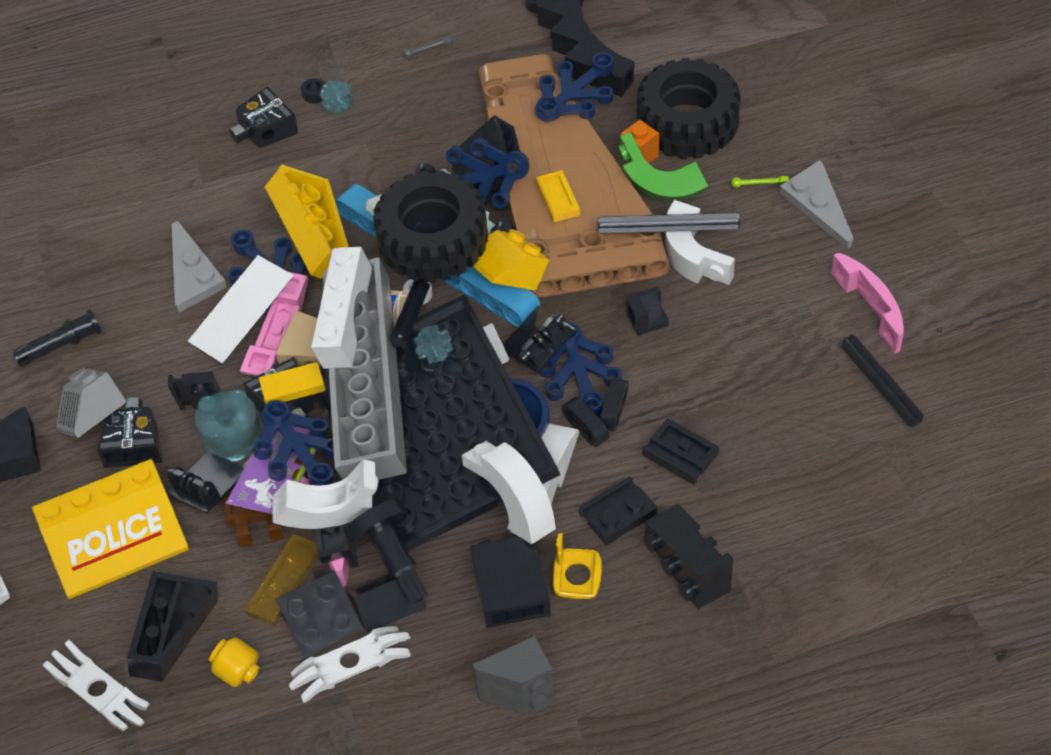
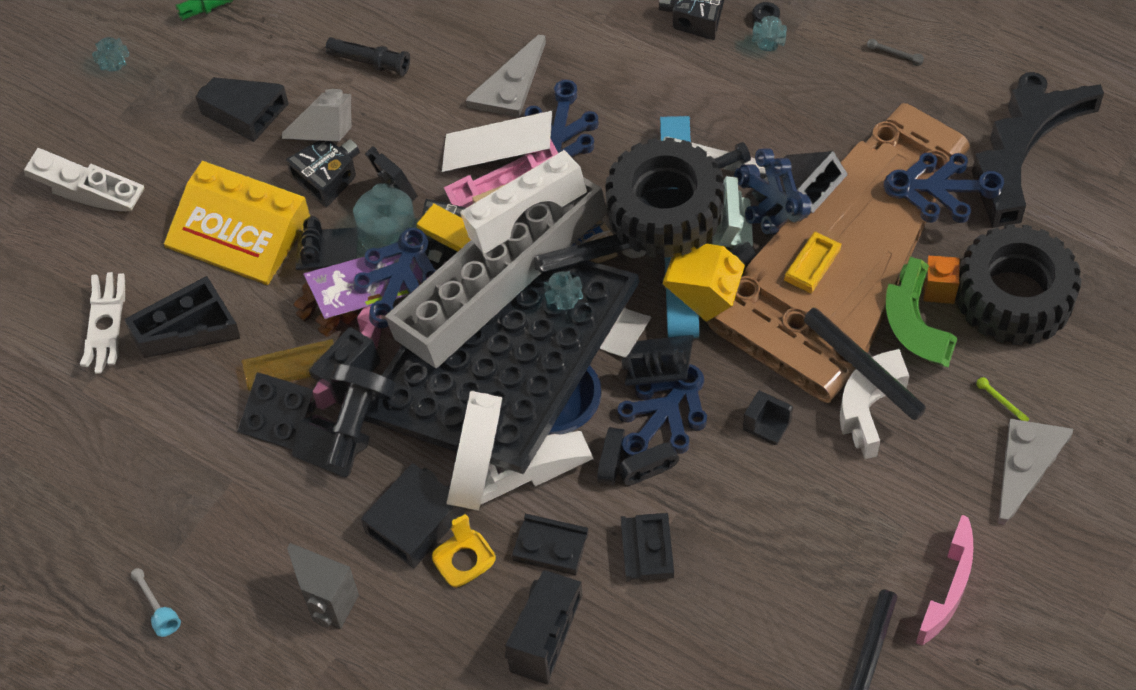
camera: 50 degrees right, 5 degrees up
(234, 662) = (190, 389): yellow head -> none
(309, 215) = (622, 116): yellow wedge -> none
(326, 505) = (346, 334): white arch -> none
(332, 672) = (270, 473): white piece -> none

